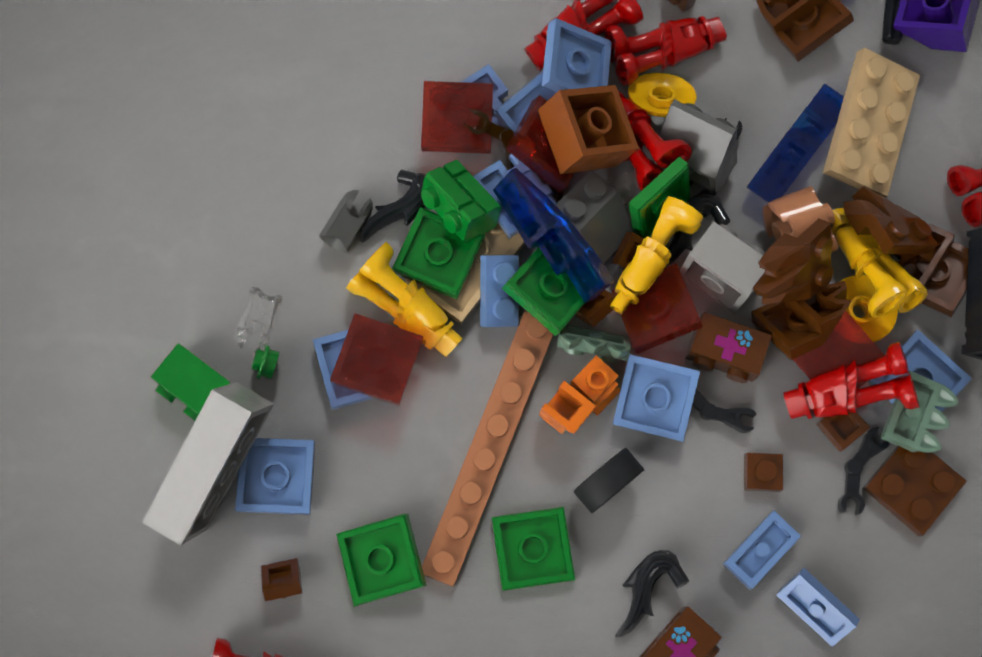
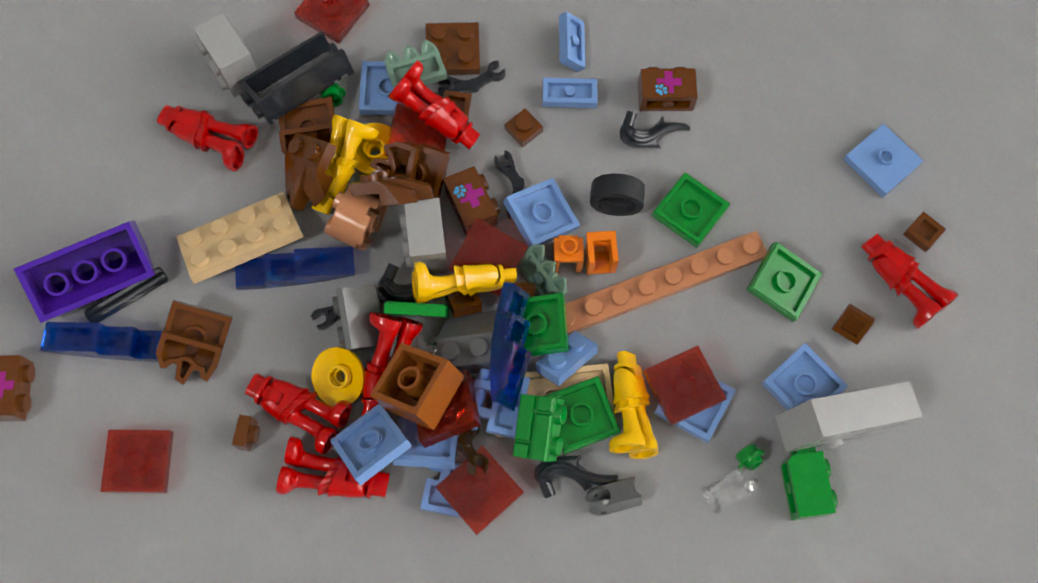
camera: 130 degrees left, 5 degrees down
(956, 325) = (336, 92): none -> green plate

